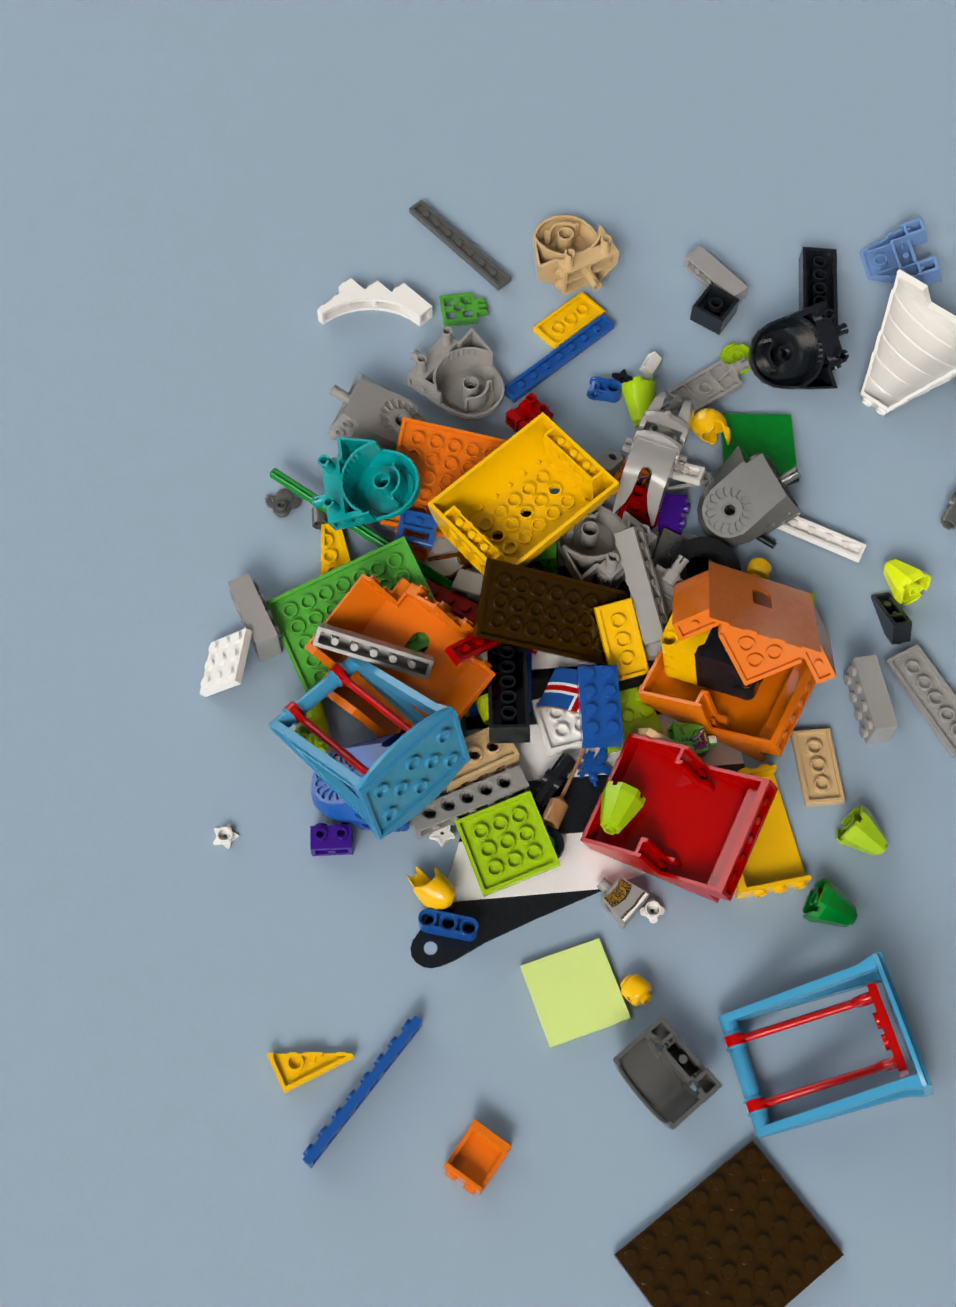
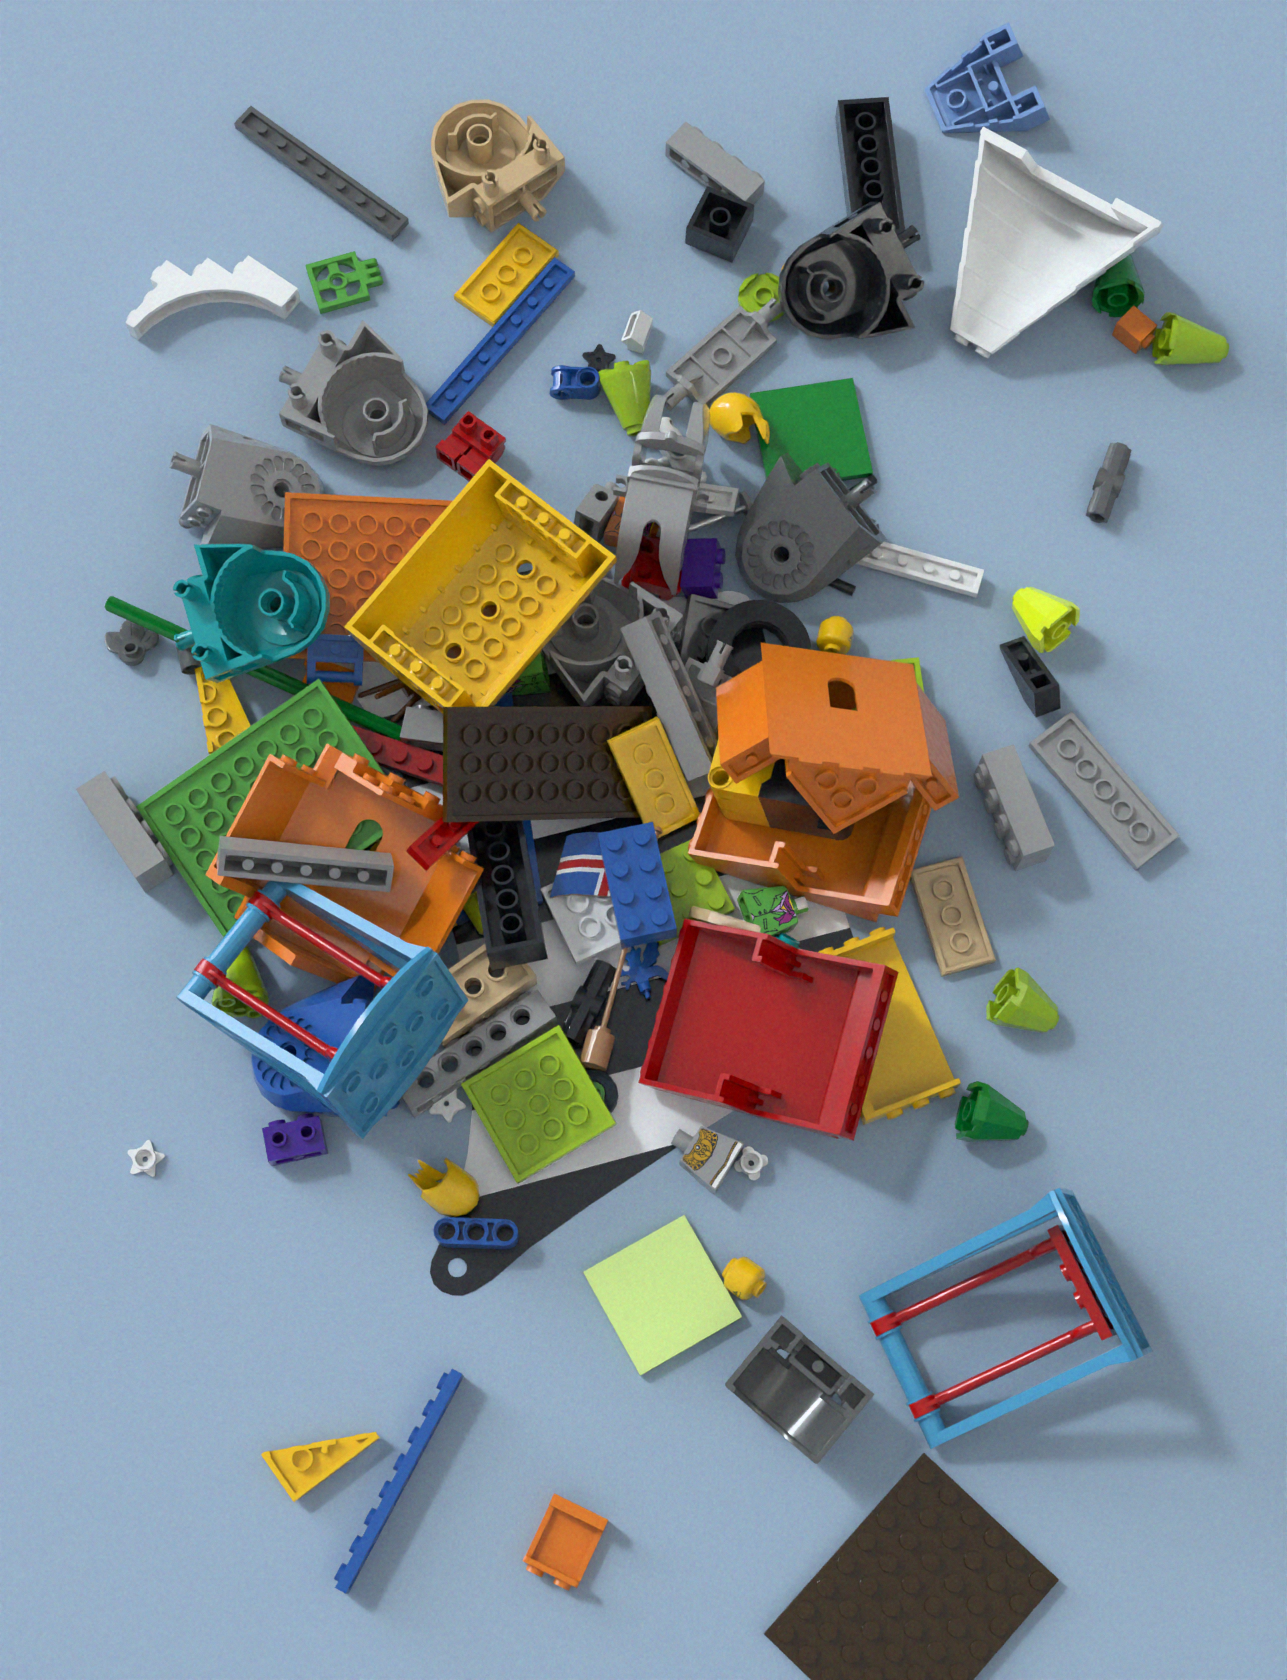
camera: 10 degrees left, 10 degrees up
(226, 662) = (97, 908): white plate -> none
(619, 806) = (684, 1031): lime cone -> none

